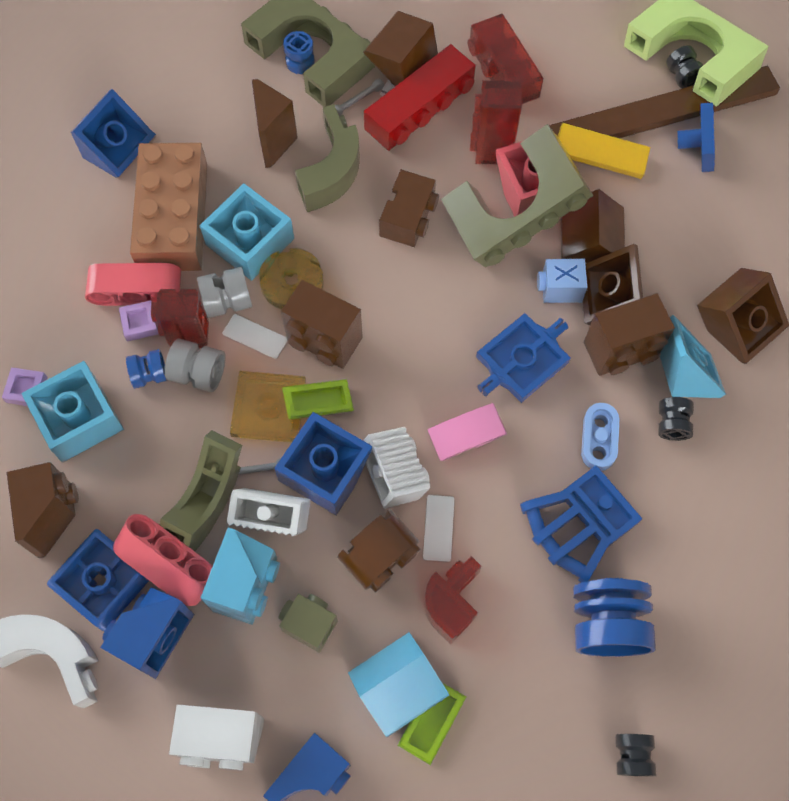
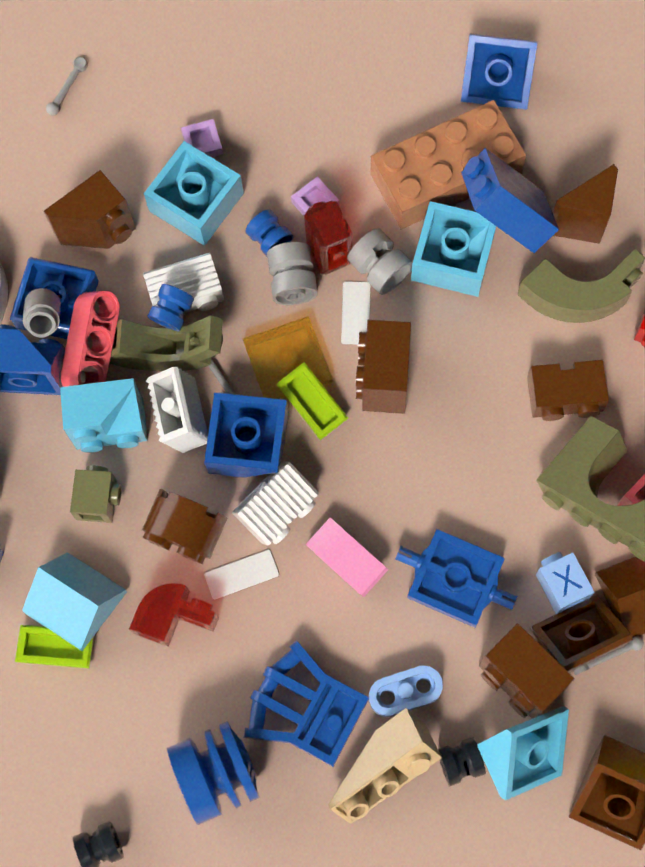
camera: 70 degrees right, 5 degrees up
(114, 587) = (41, 312): none -> light grey brick
(129, 282) = (349, 176): coral beam -> none
(154, 460) = (194, 276): none -> white brick
(174, 471) = (170, 307): none -> blue wheel
(234, 167) = (509, 200): none -> blue brick
(287, 264) = (444, 303): clear yellow plate -> none
(655, 469) = (388, 762): none -> tan slope

